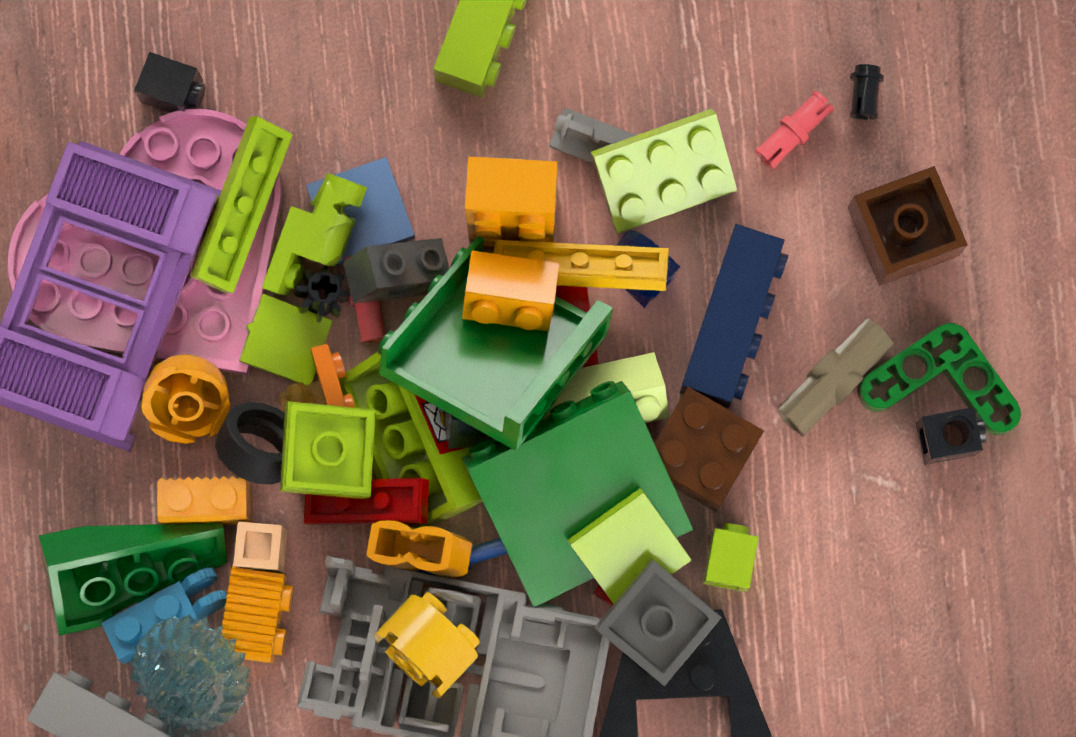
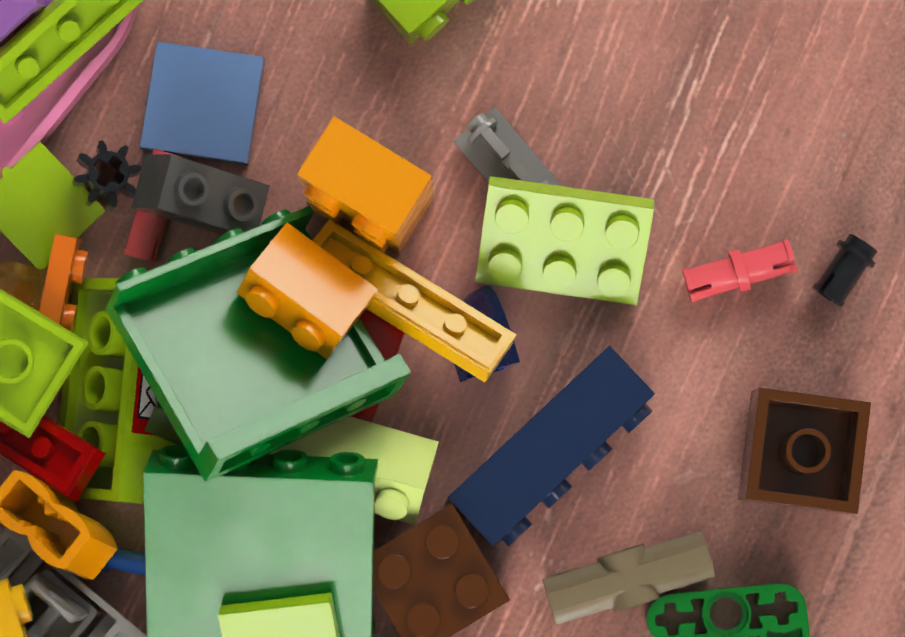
camera: 30 degrees right, 5 degrees up
(314, 235) = (132, 105): lime plate -> none

